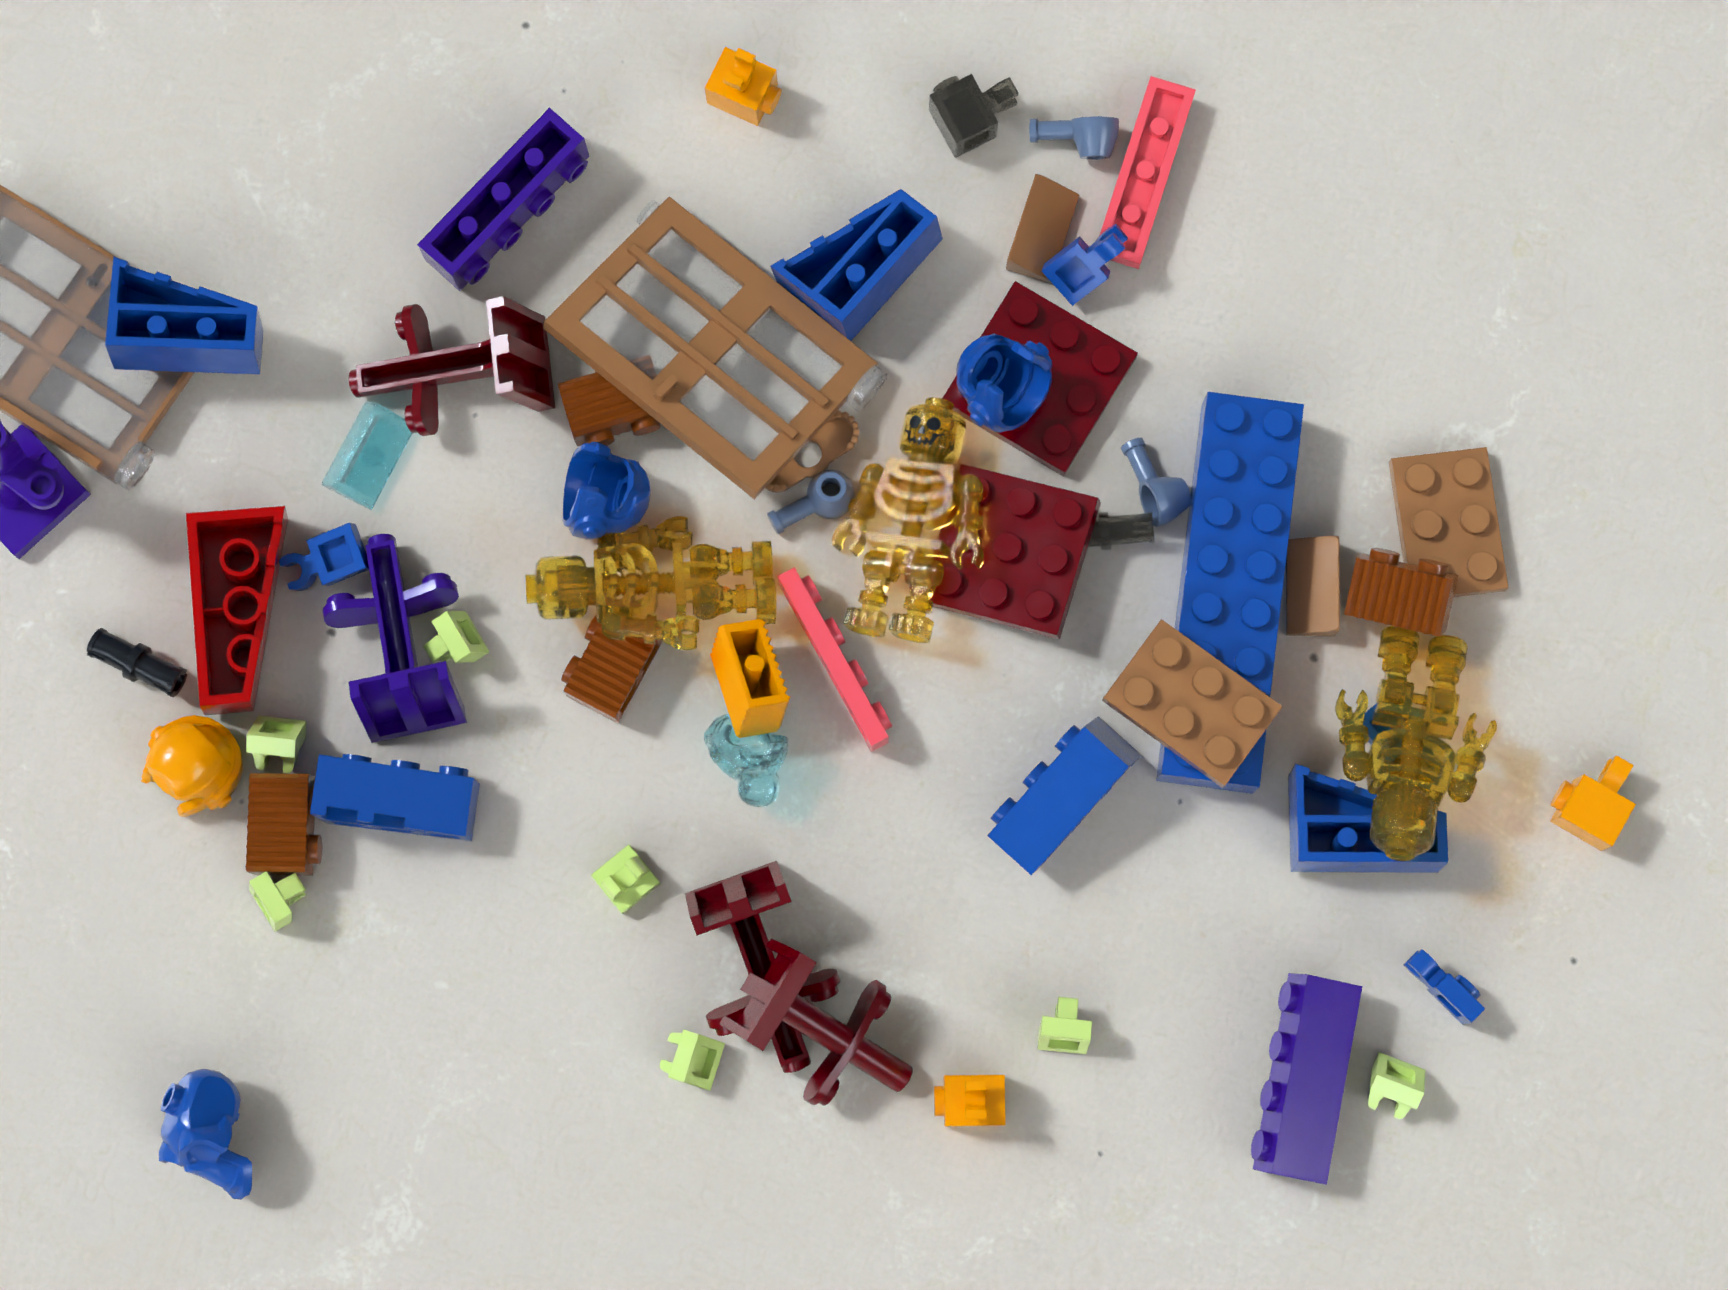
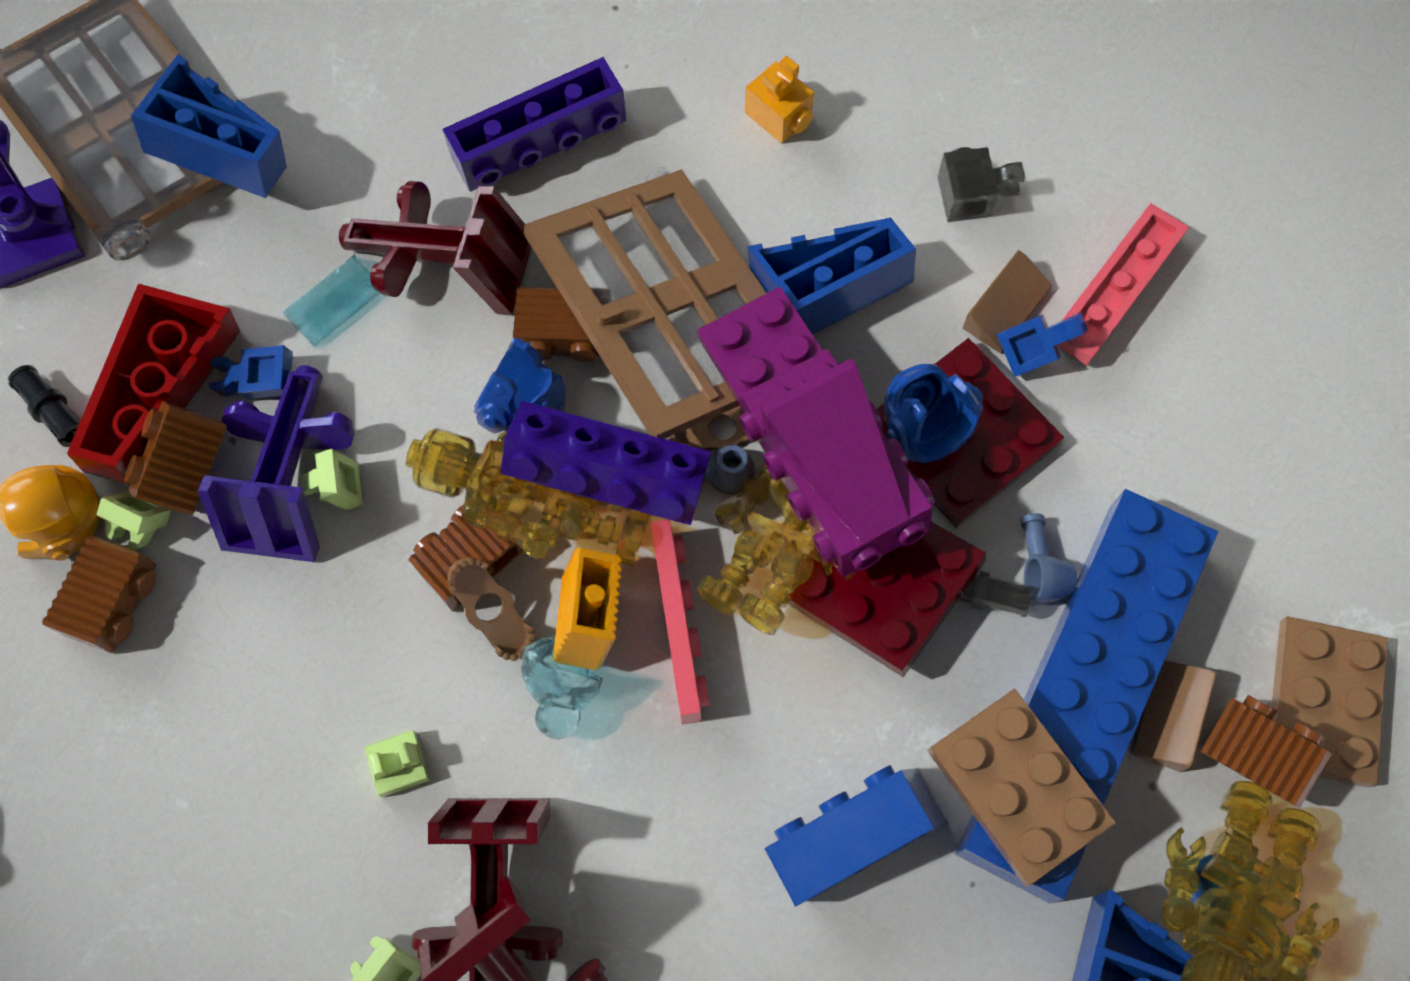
camera: 20 degrees right, 10 degrees down
(277, 897) = (62, 661): yellowish green tile -> none
(298, 671) = (174, 458): none -> dark orange brick
(395, 797) = (208, 603): blue wedge -> none
(679, 724) = (508, 631): none -> medium nougat piece
(717, 536) = (604, 462): none -> dark purple brick
(903, 438) = (818, 434): none -> magenta wedge
(1092, 135) = (1080, 234): sand blue bar -> none

